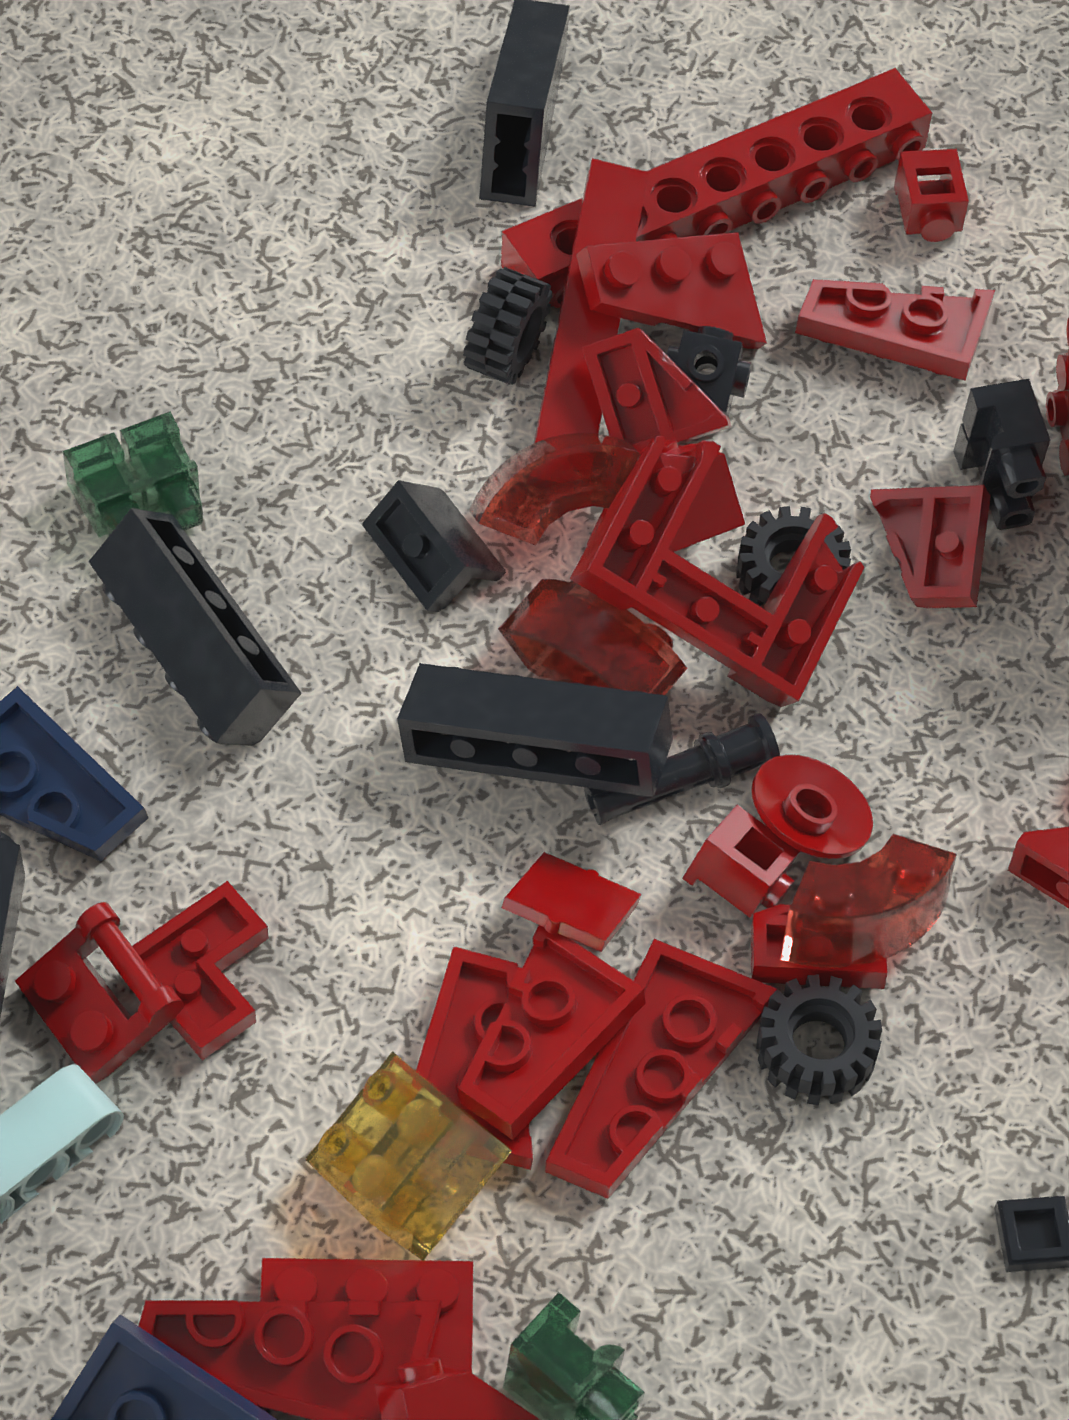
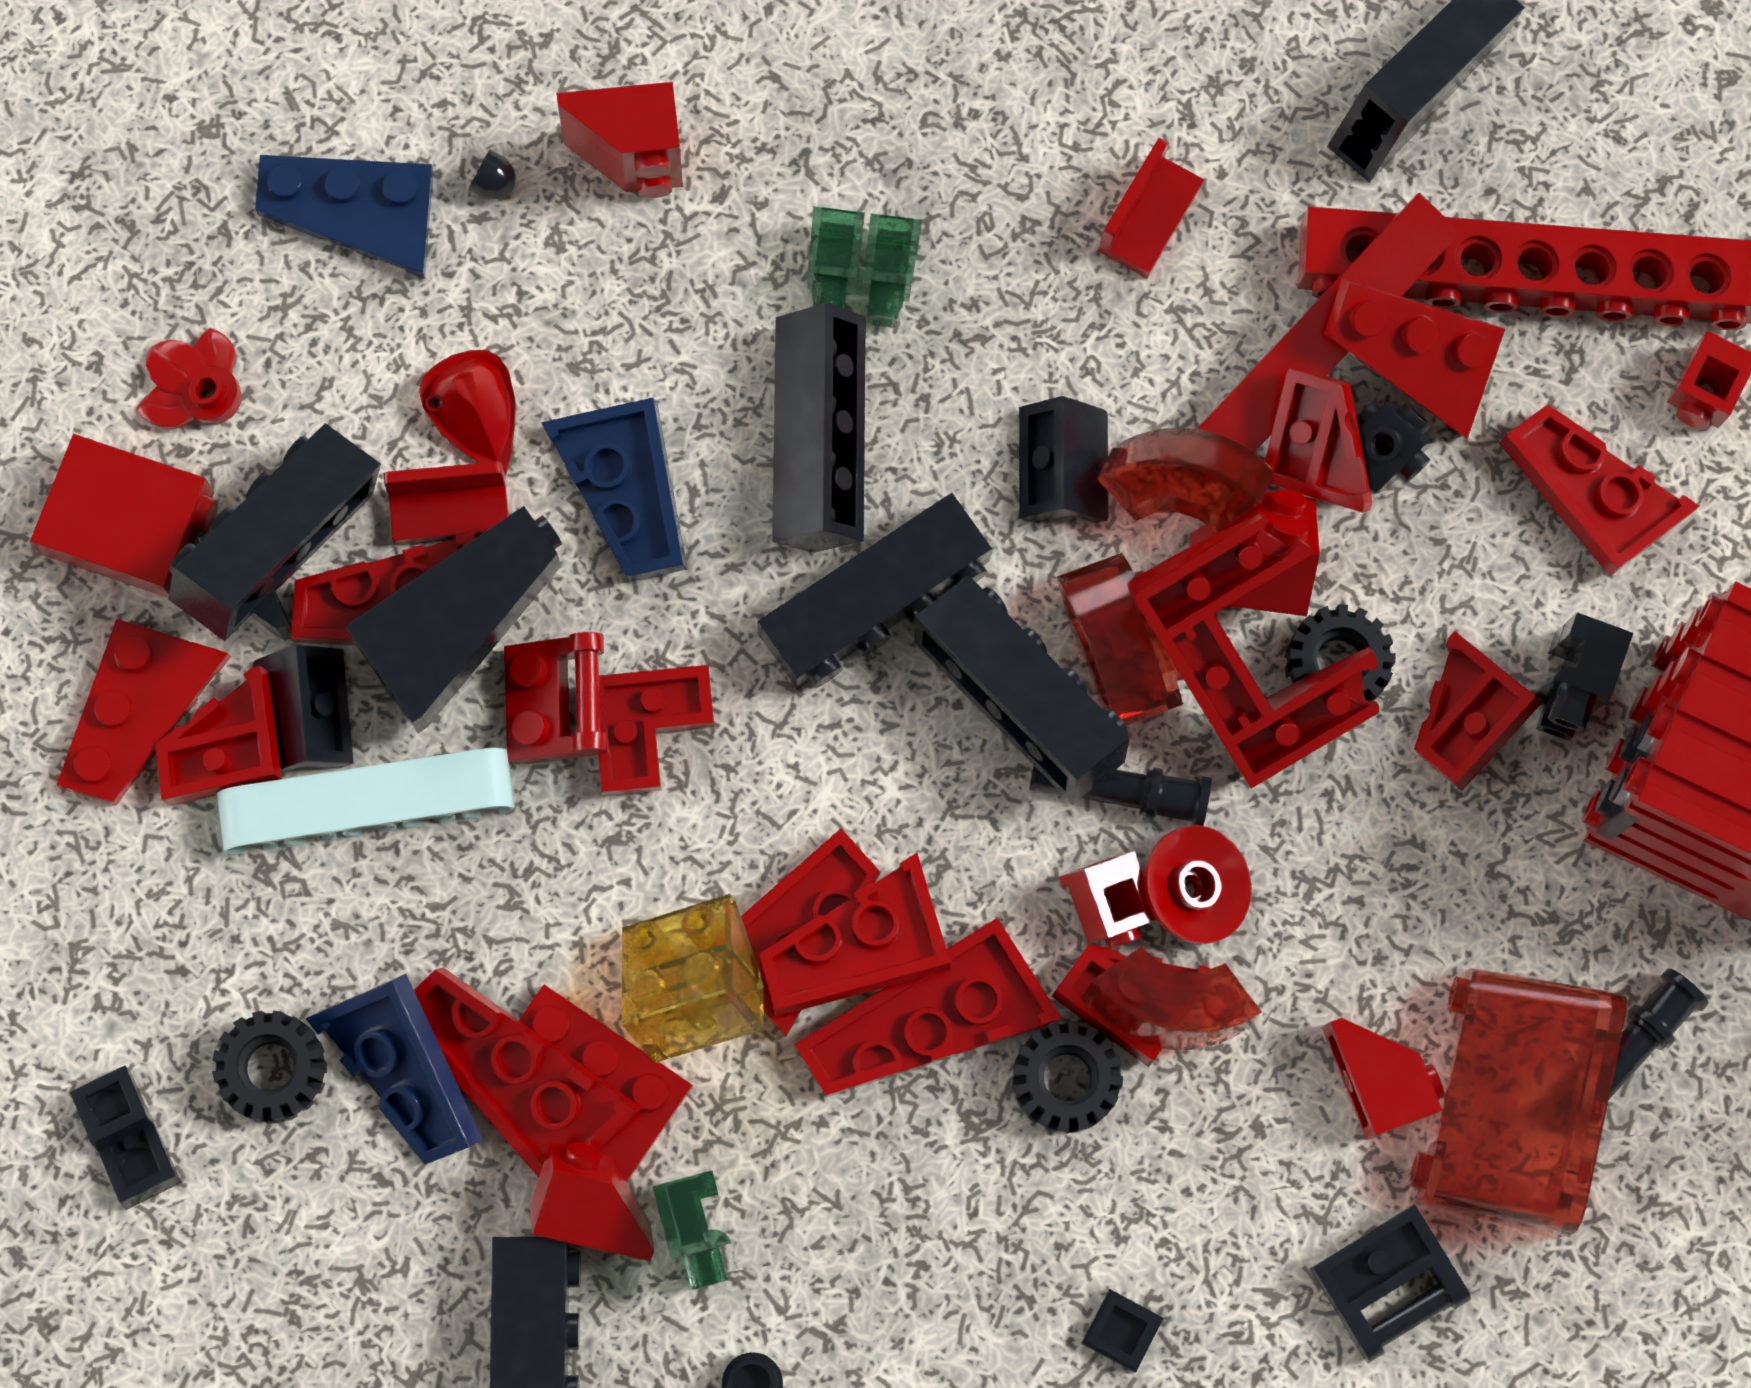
camera: 30 degrees right, 20 degrees up
(338, 739) = (874, 592): none -> black brick
(366, 318) = (1149, 212): none -> red panel
(507, 325) = (1251, 300): black tyre -> none
(571, 901) = (955, 847): red piece -> none

